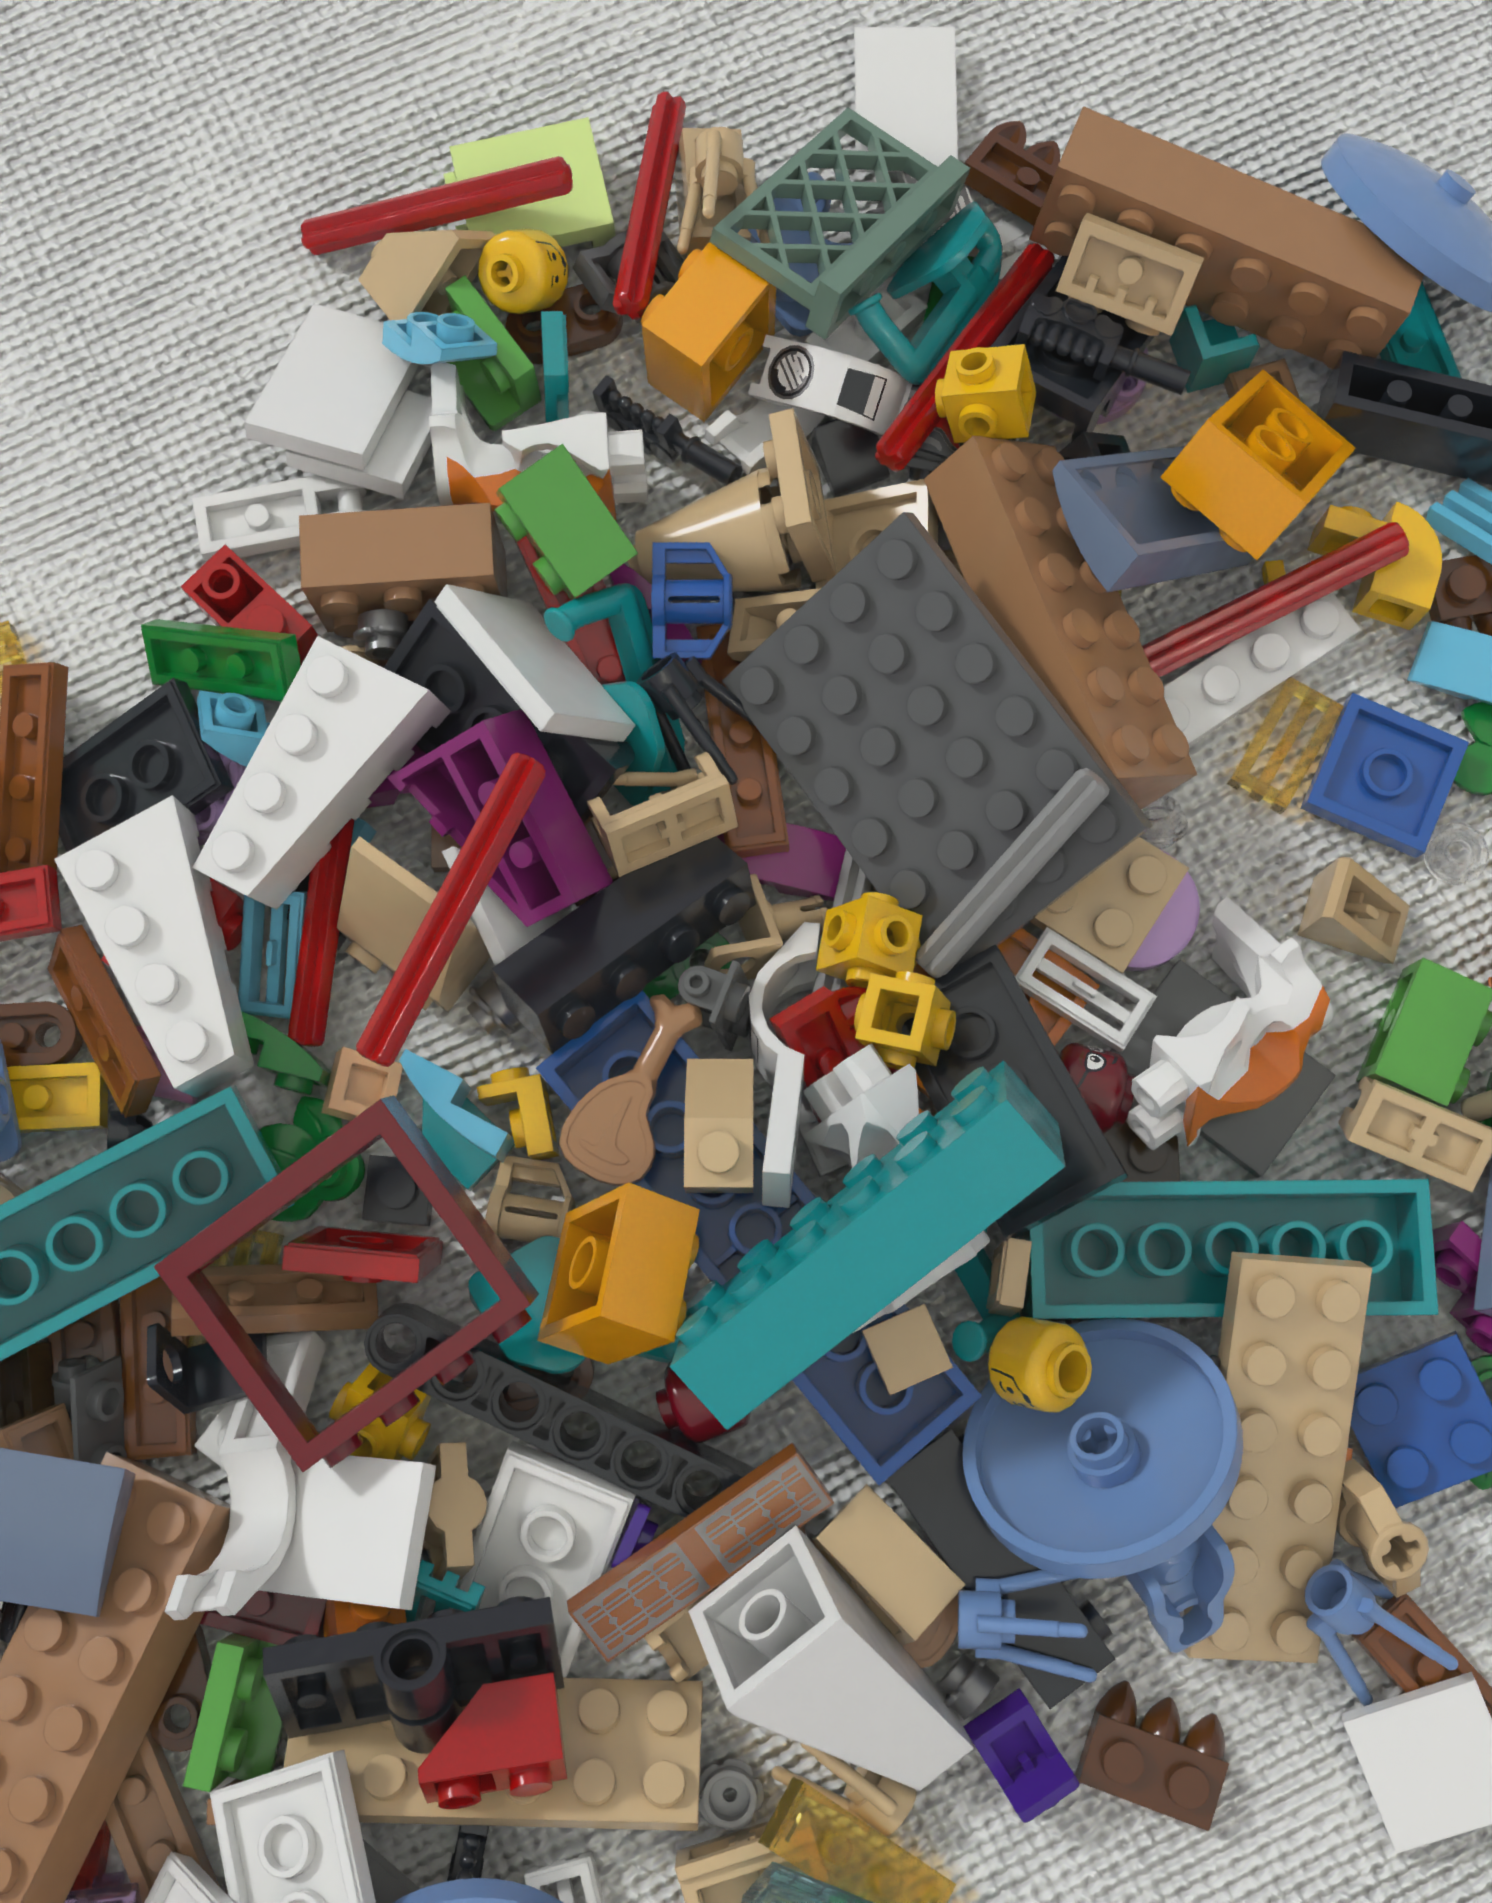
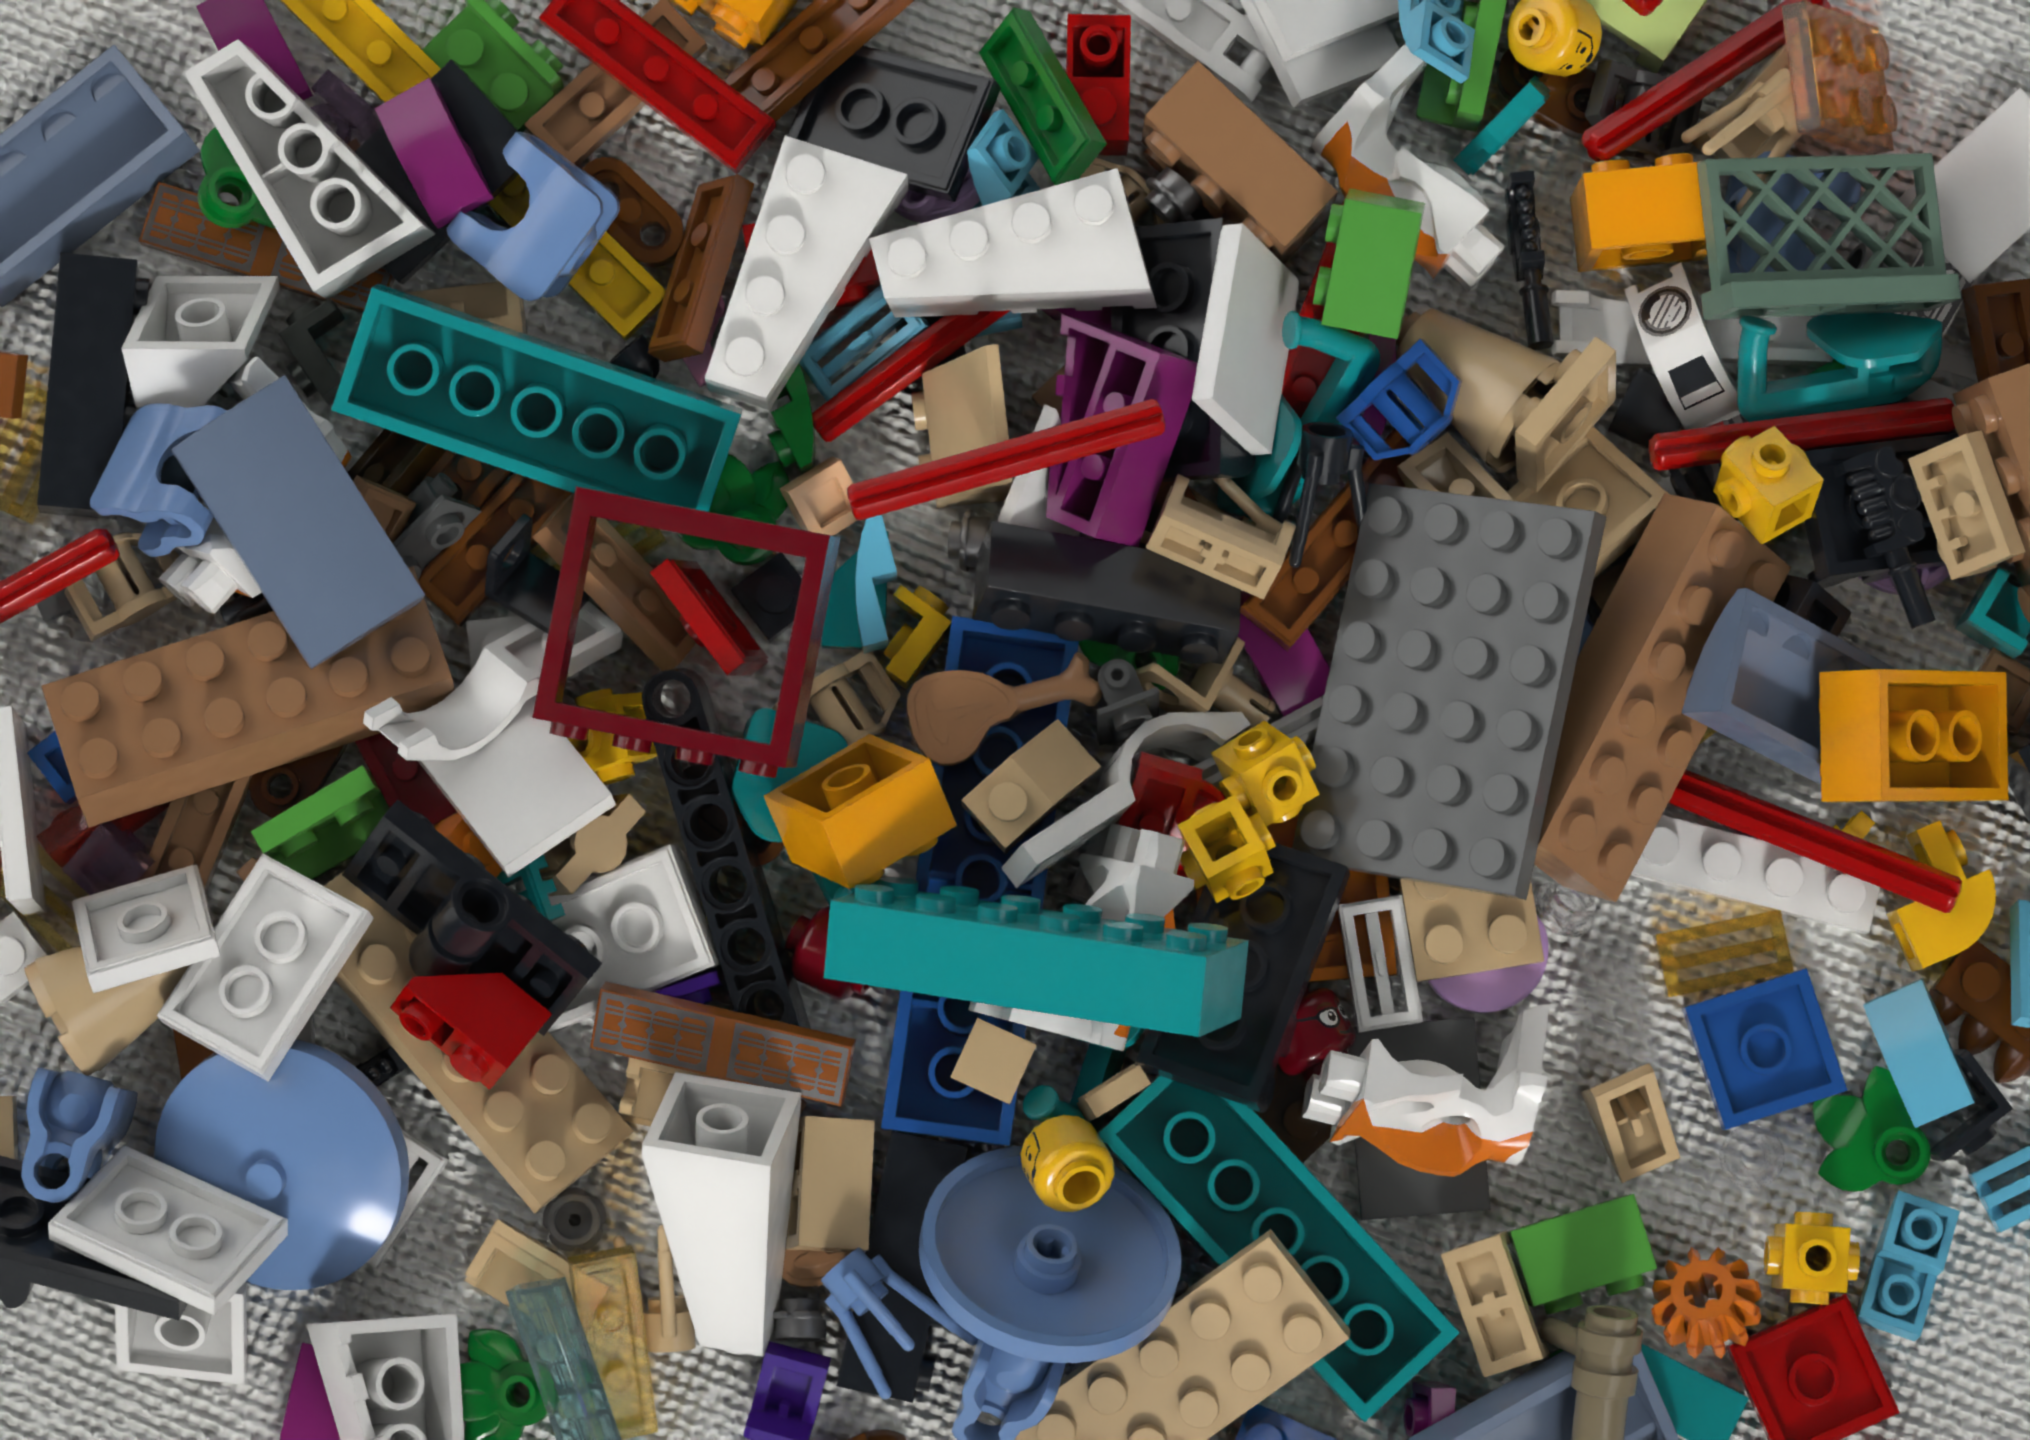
camera: 45 degrees right, 5 degrees up
(734, 107) = (1839, 78): none -> clear orange plate
(1012, 872) = (1400, 829): light grey axle -> none

